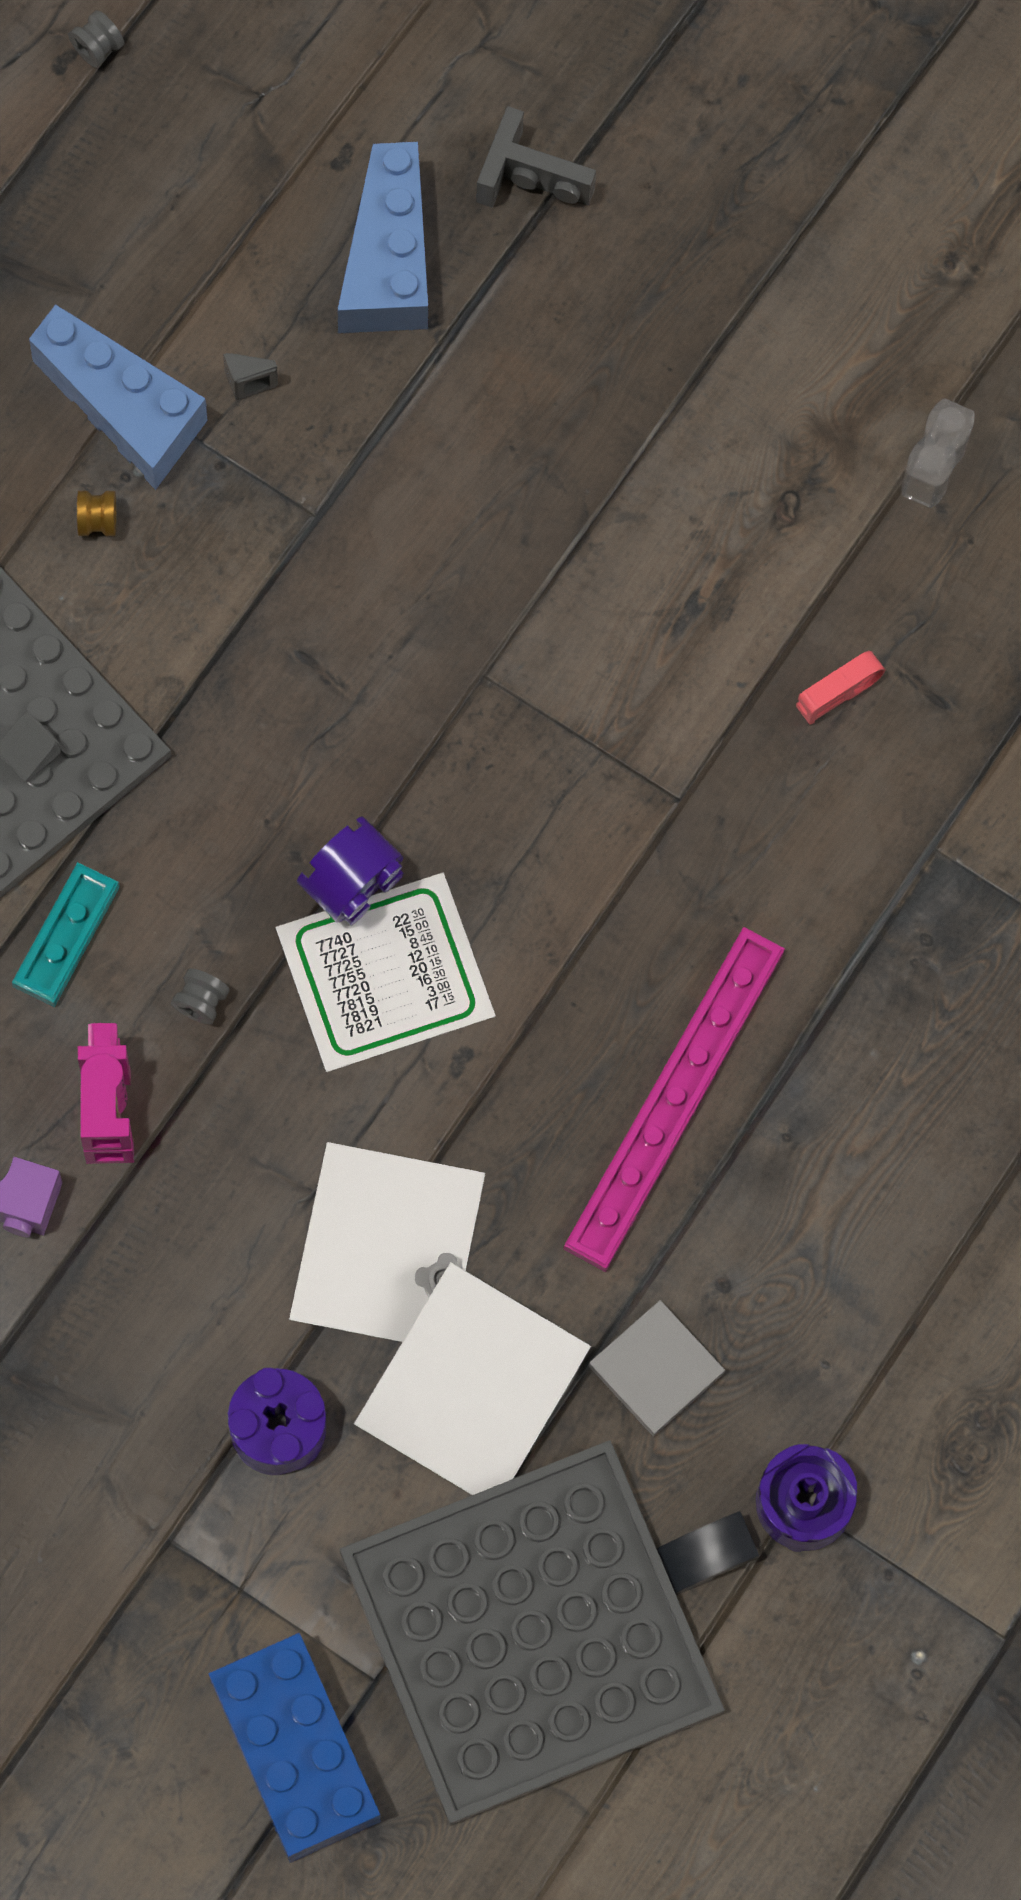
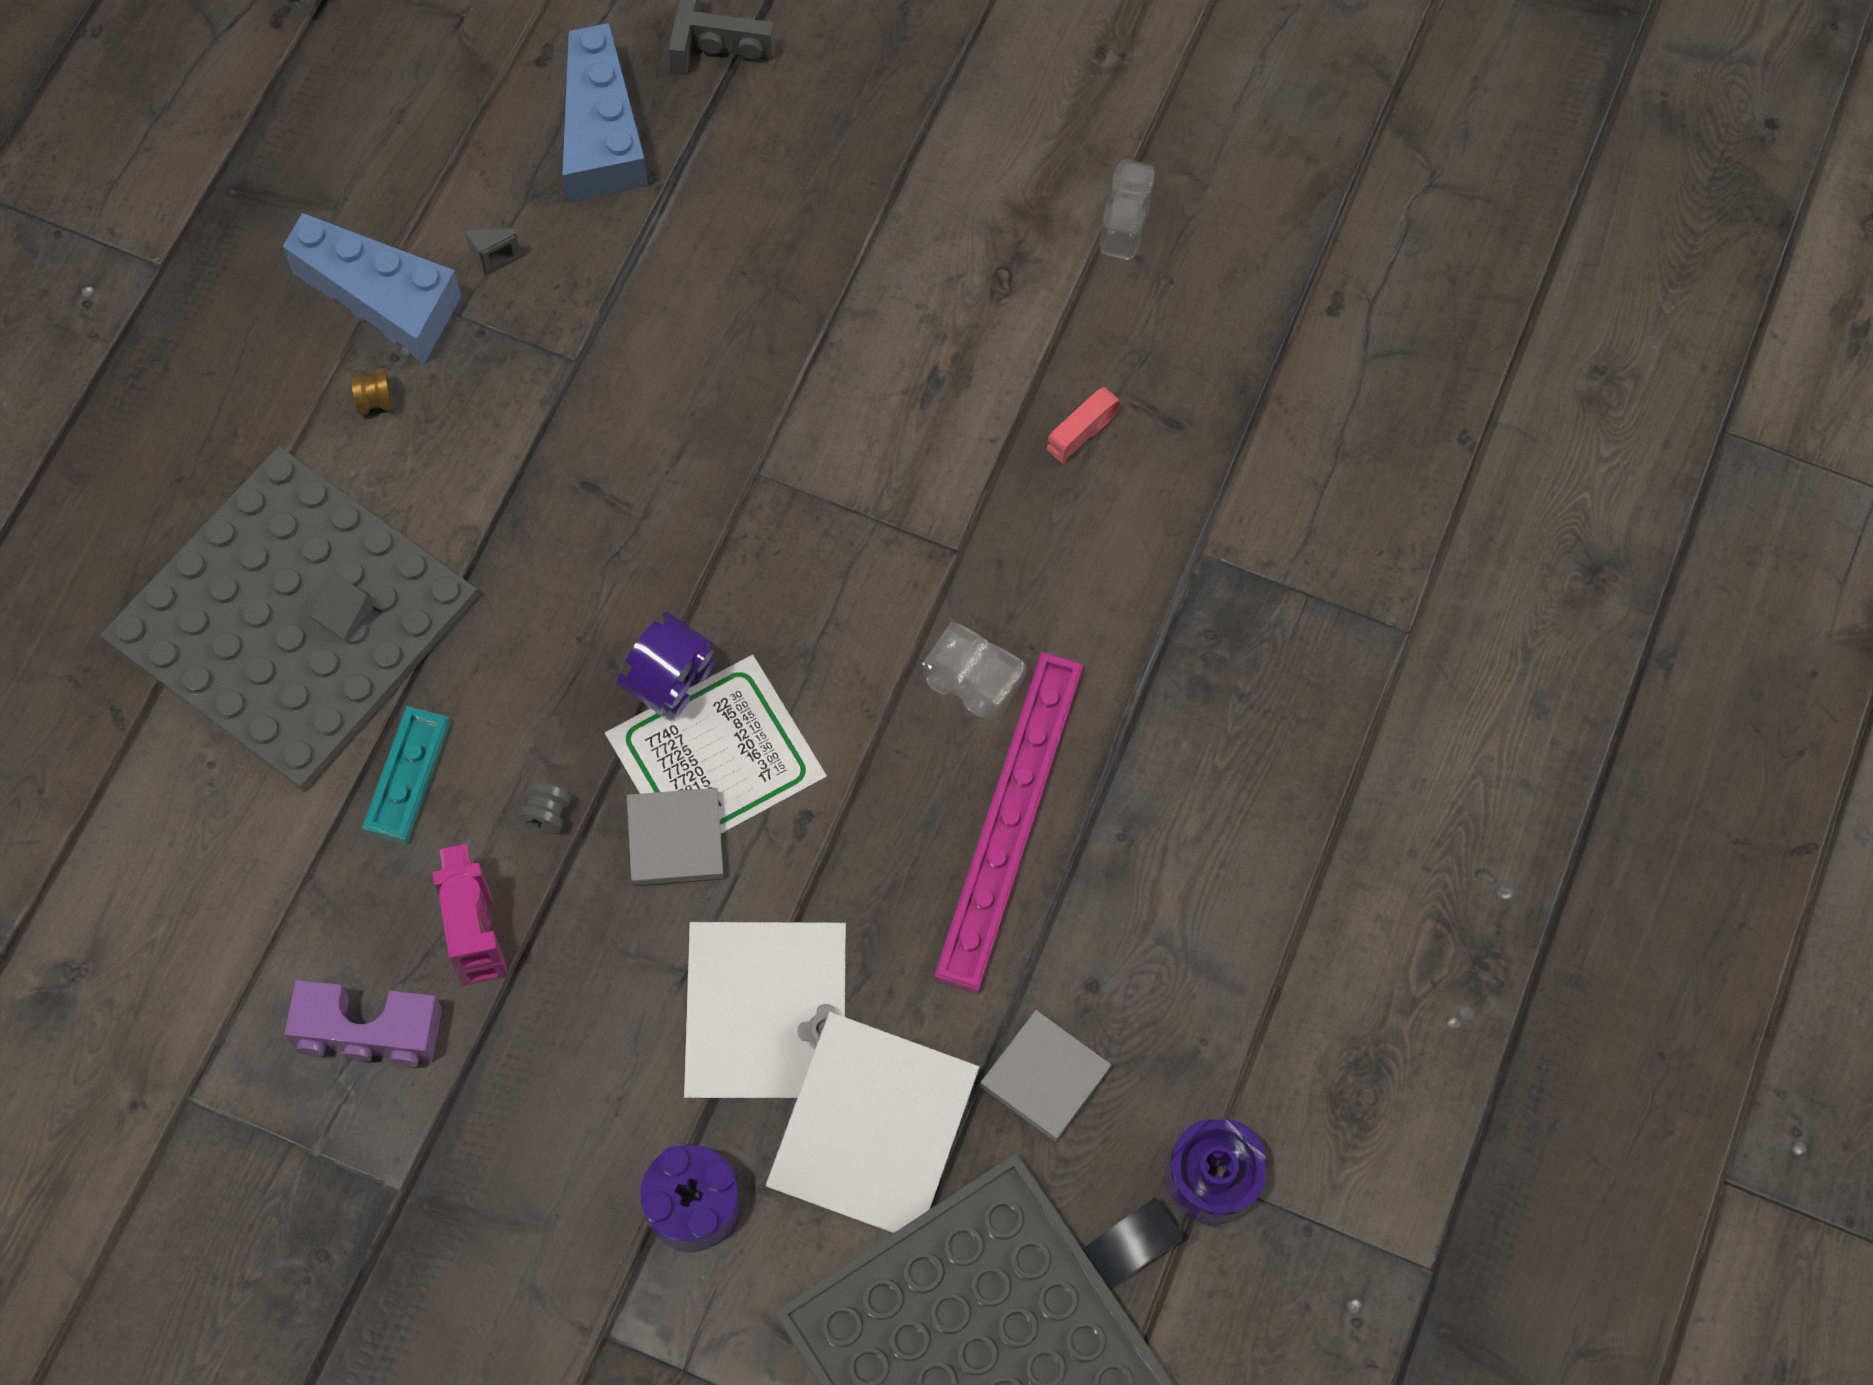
camera: 10 degrees left, 5 degrees down
(328, 1051) = (674, 836): none -> light grey tile
(668, 934) = (974, 671): none -> clear brick

